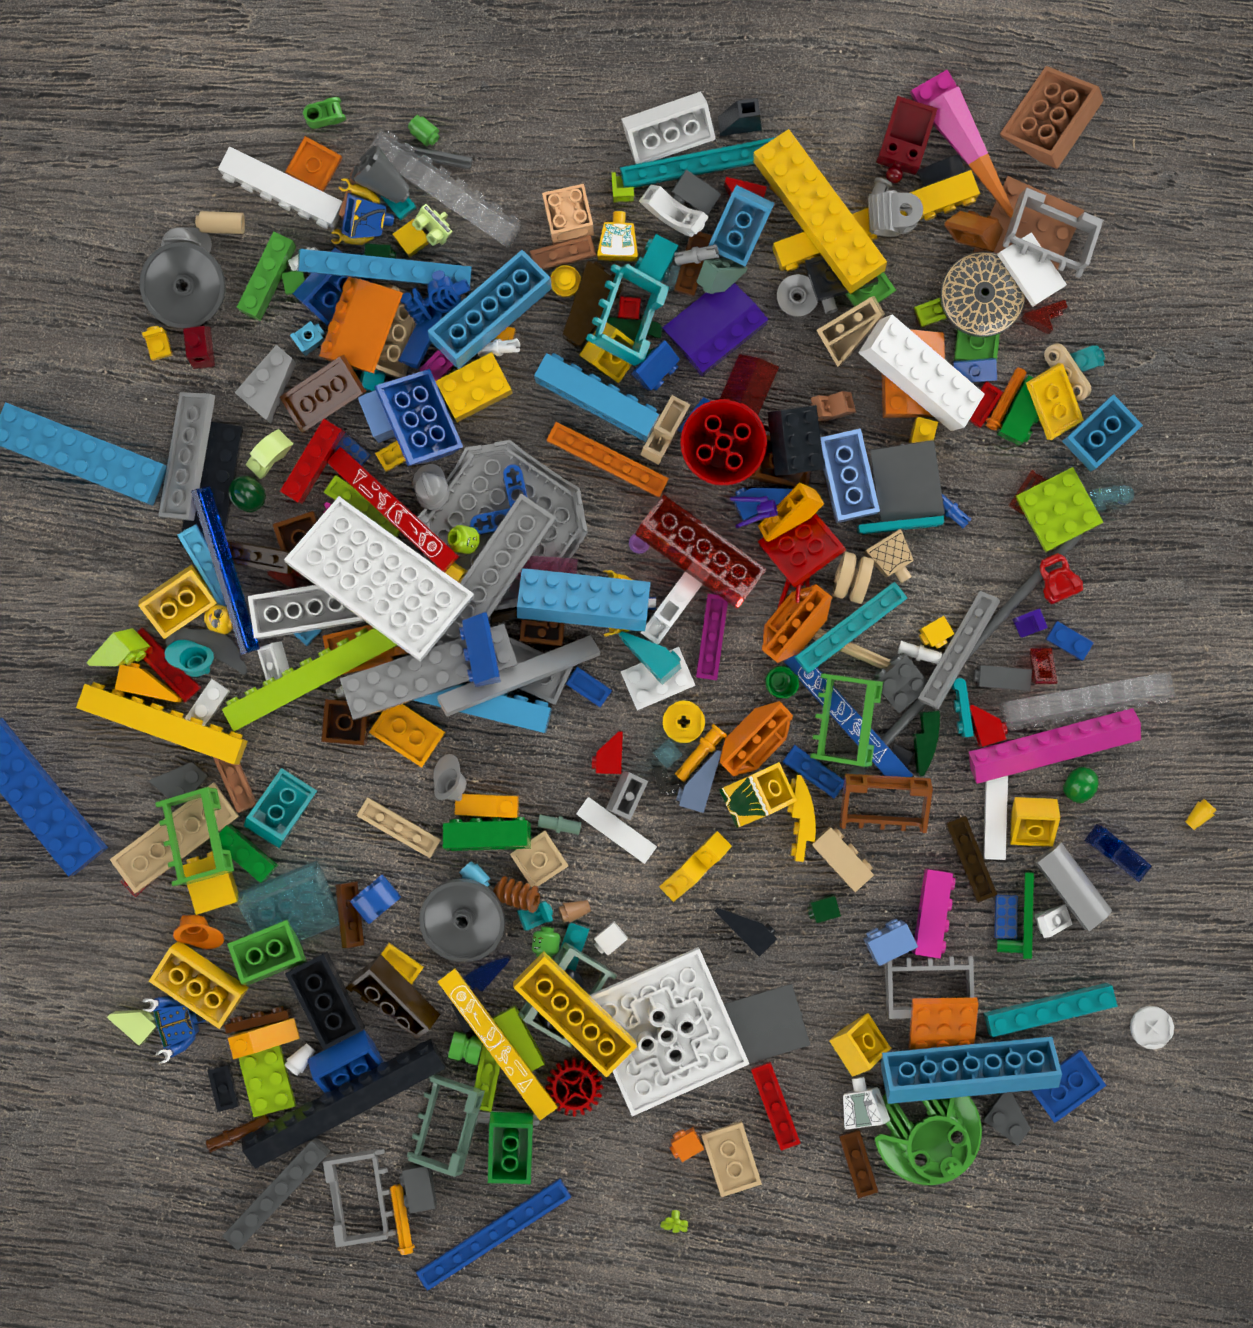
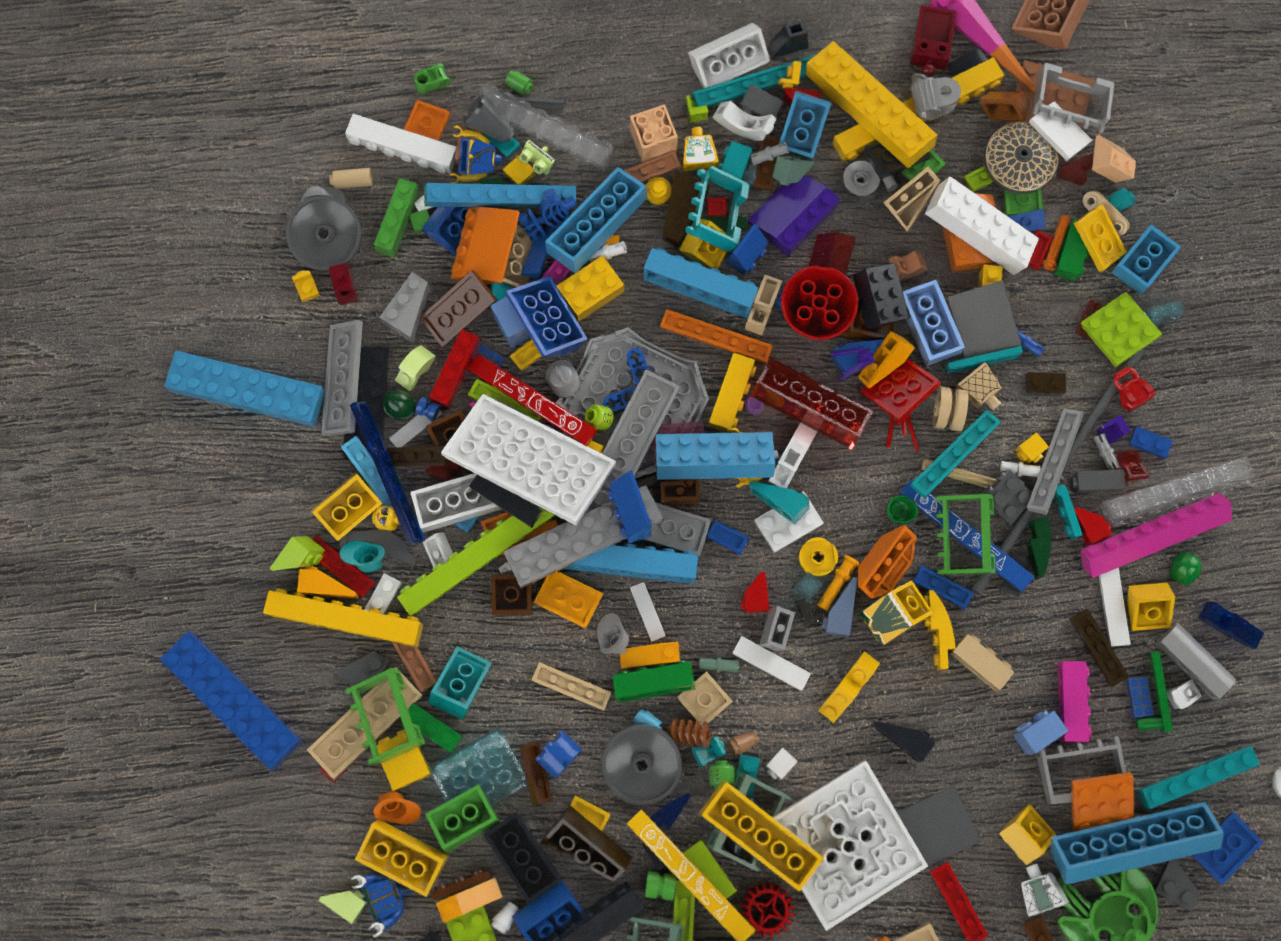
camera: 10 degrees left, 10 degrees down
(263, 518) = (410, 430): none -> white sticker
(278, 502) = (428, 408): none -> blue wheel
(311, 344) = (439, 271): medium azure brick -> none
(356, 627) = (506, 500): none -> black tile
(491, 756) = (647, 611): none -> white sticker
(520, 675) = (665, 531): light grey tile -> none
(615, 527) = (731, 393): none -> yellow brick
(712, 637) = (832, 479): magenta plate -> none
(738, 161) = (793, 73): none -> yellow bracket
(795, 623) = (906, 455): orange wedge -> none
(823, 909) = (973, 711): dark green brick -> none
(860, 783) = (990, 588): dark orange hinge -> none
(965, 558) = (1045, 382): none -> dark brown plate
(1018, 646) = (1106, 452): none -> light grey pin
(1085, 311) = (1112, 161): none -> light nougat slope

